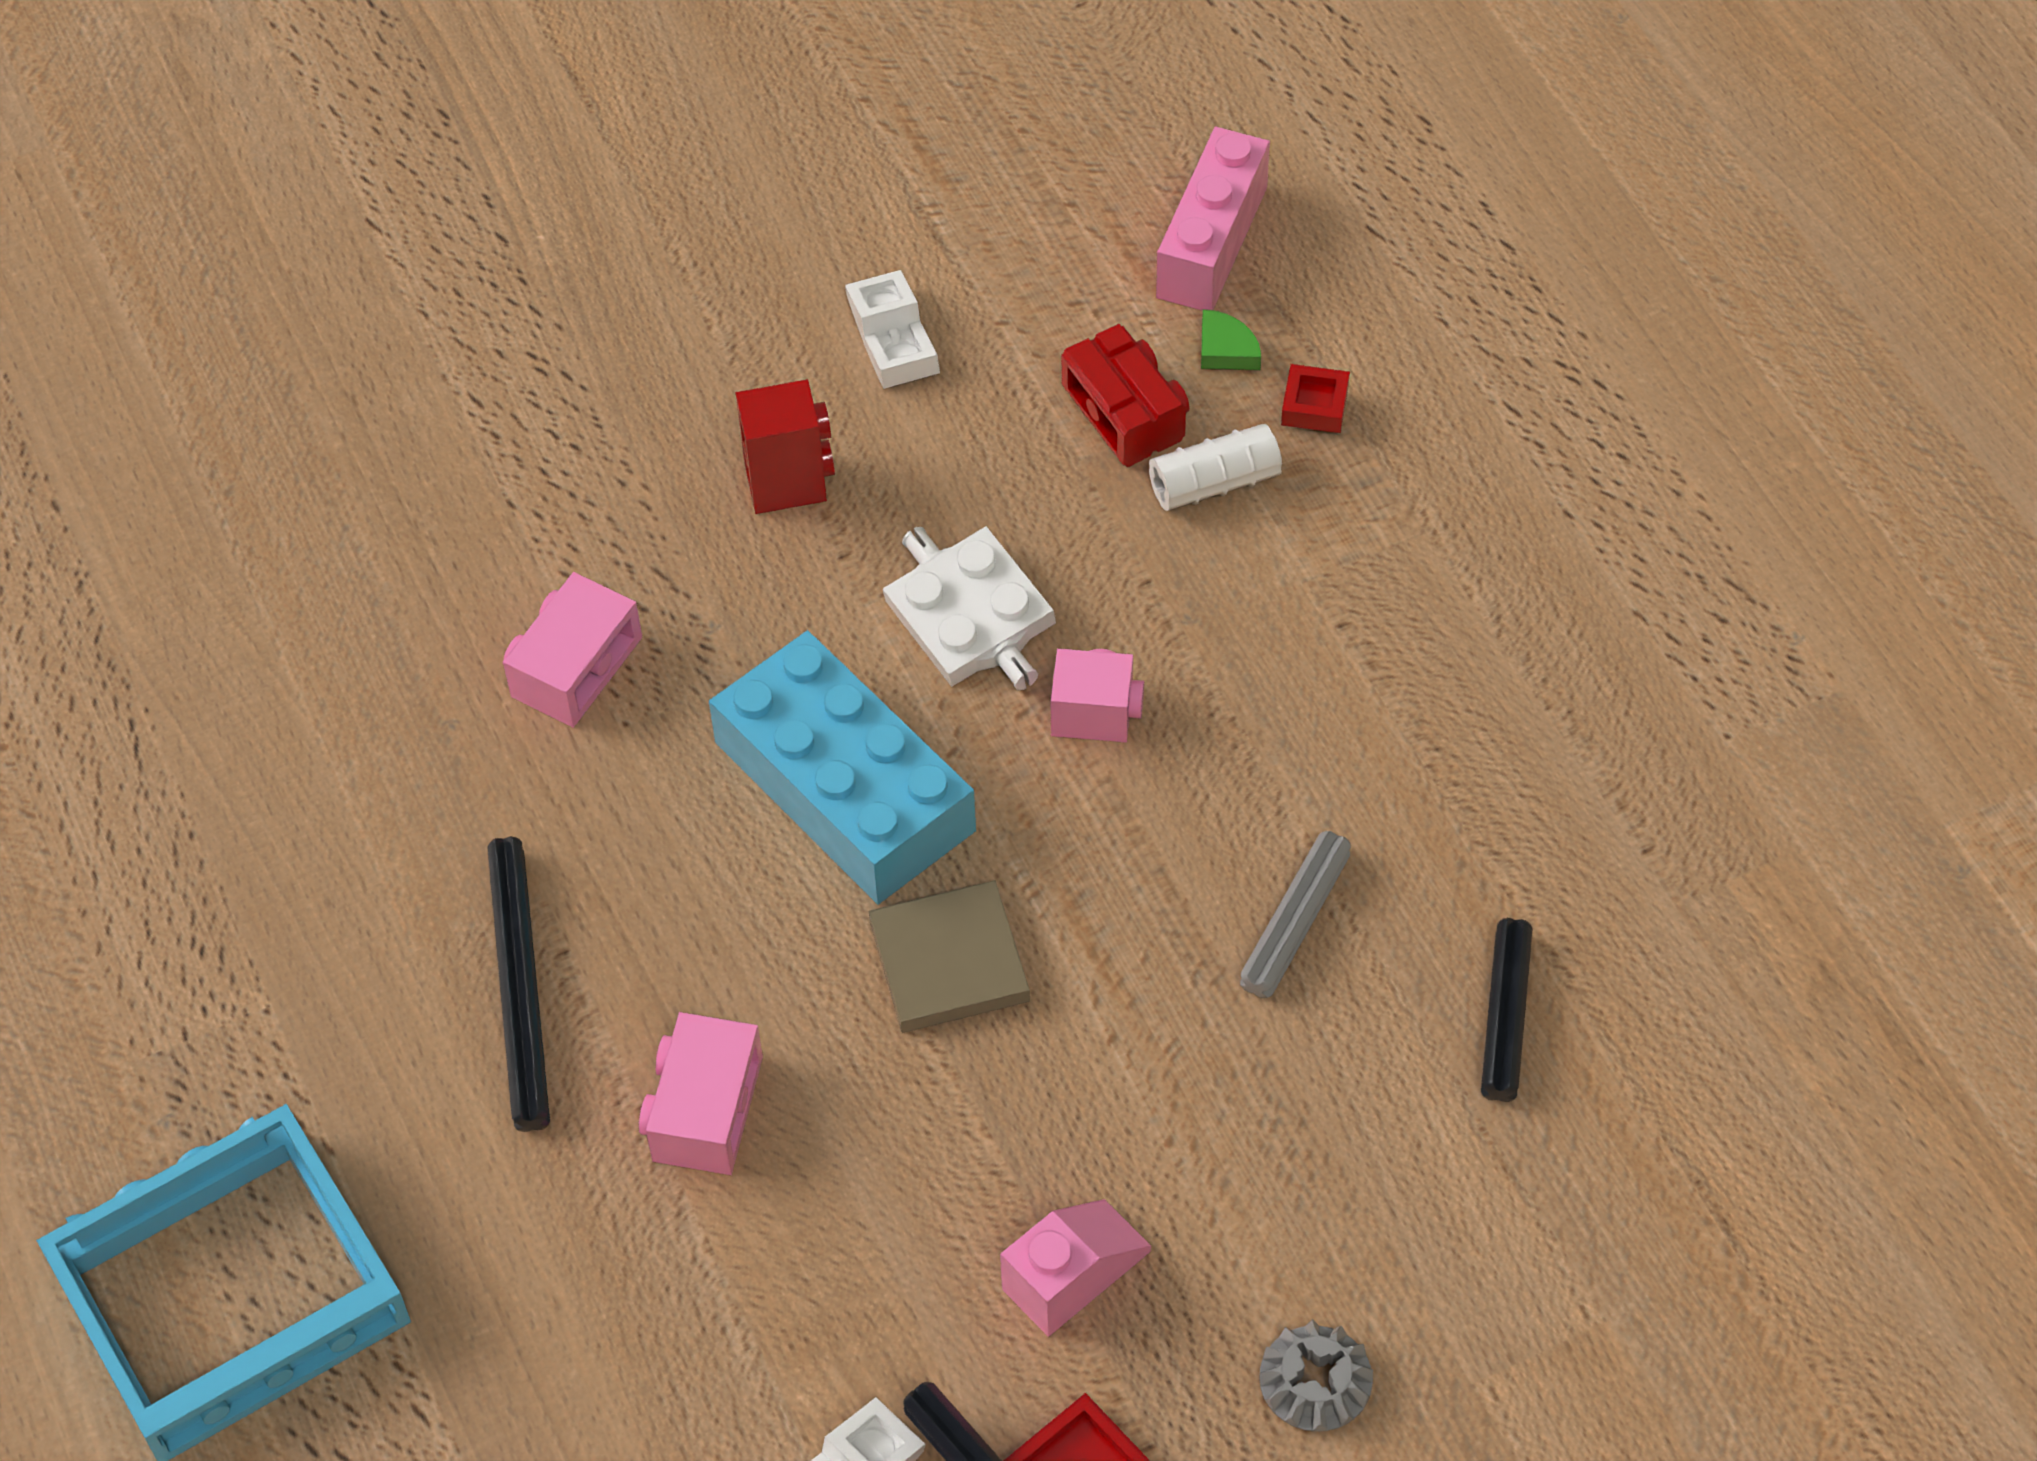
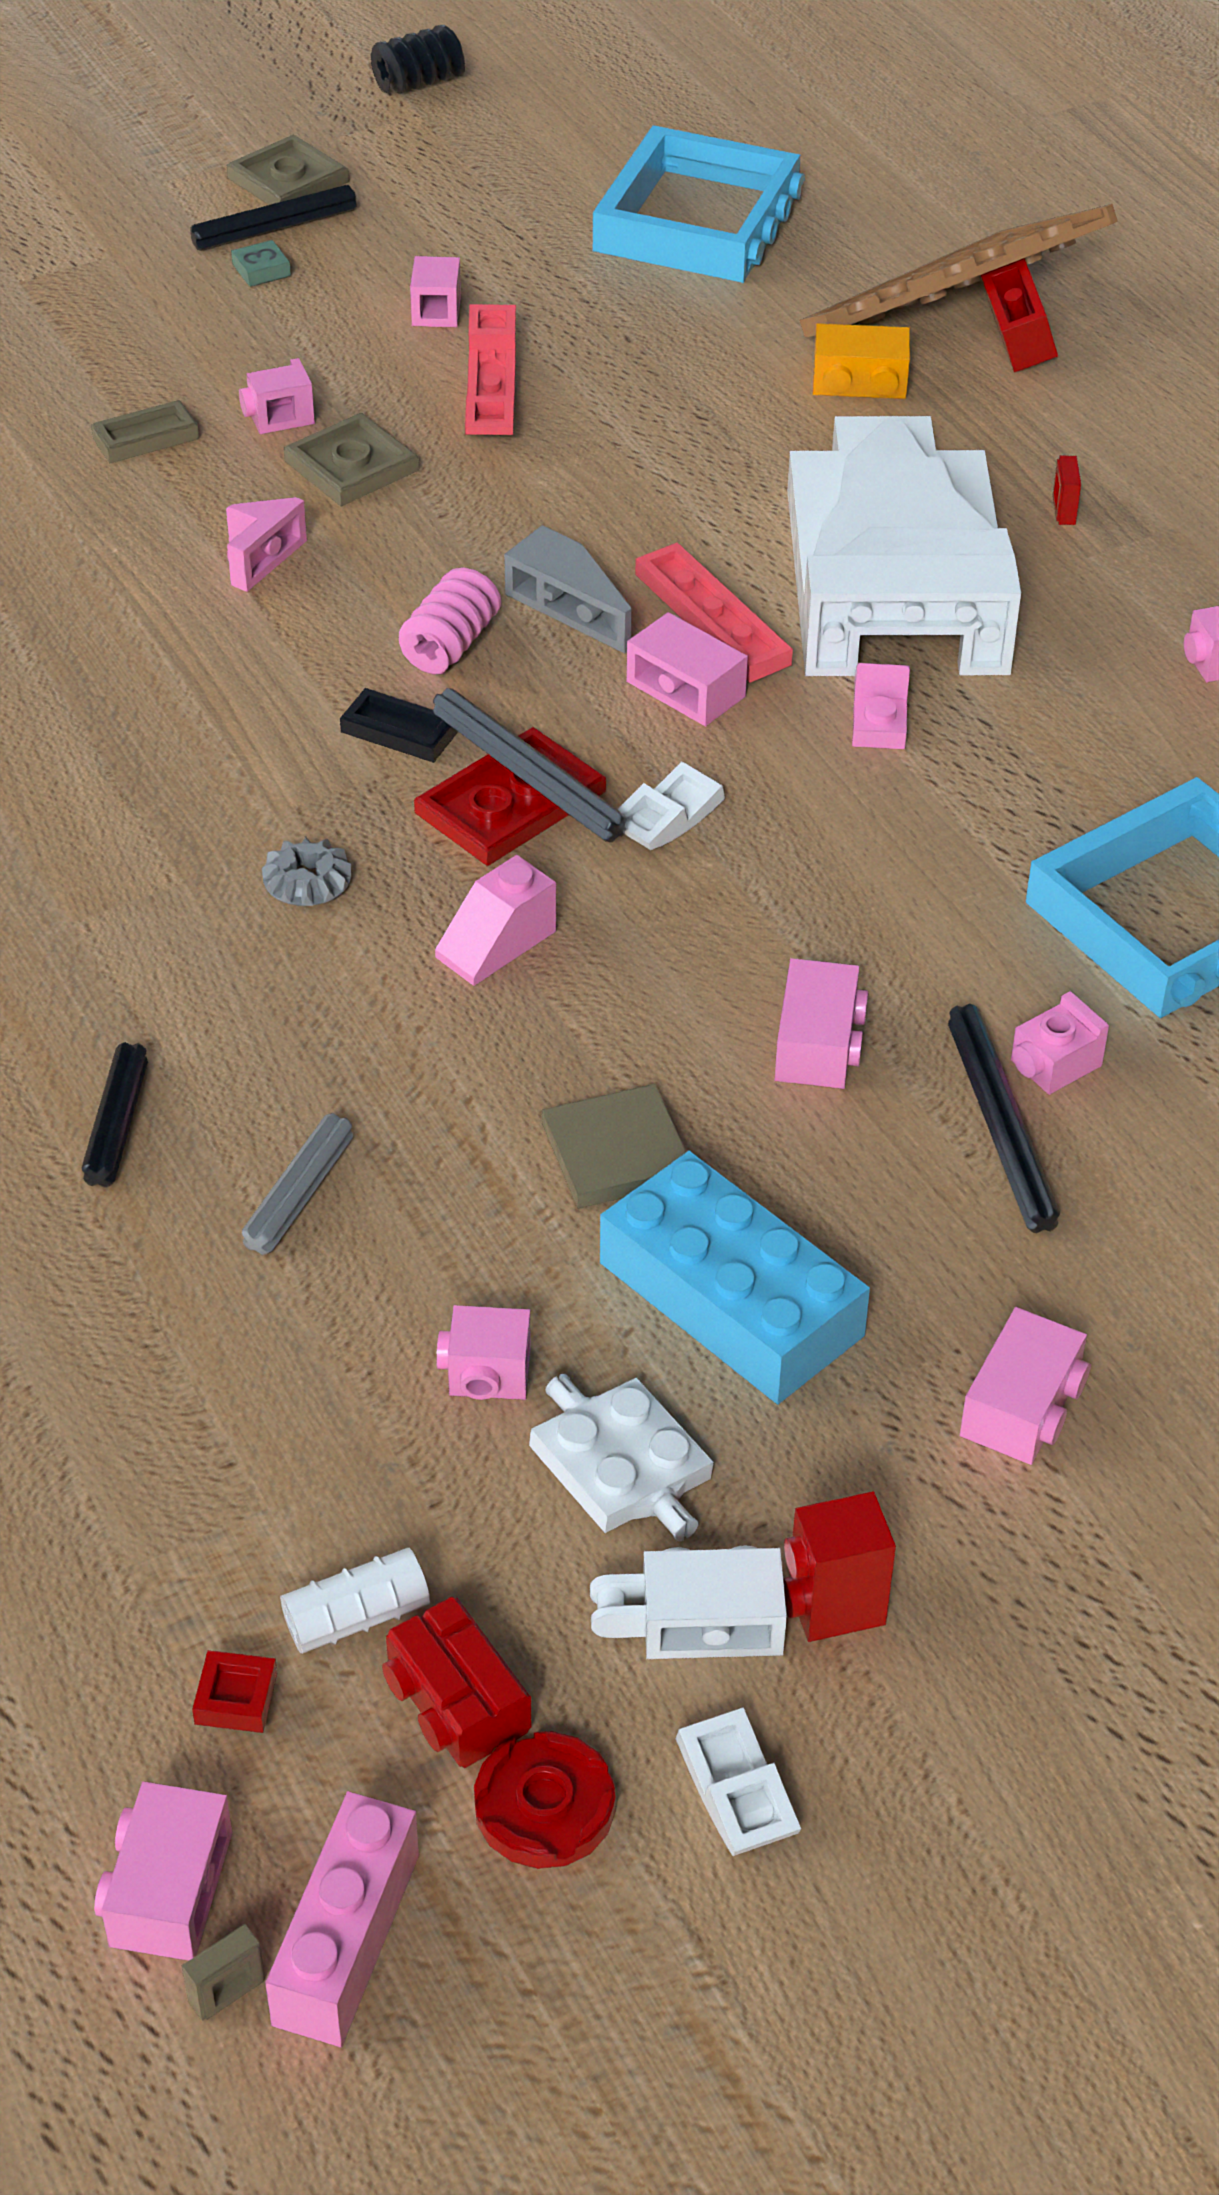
camera: 175 degrees right, 10 degrees down
(434, 1059) = (1060, 1044): none -> bright pink brick
(911, 454) = (697, 1603): none -> white brick
(1044, 319) = (544, 1800): none -> red tile
(1228, 343) = (332, 1771): bright green tile -> none
(1305, 191) = (223, 1972): none -> dark tan tile
(1357, 260) = (164, 1871): none -> bright pink brick

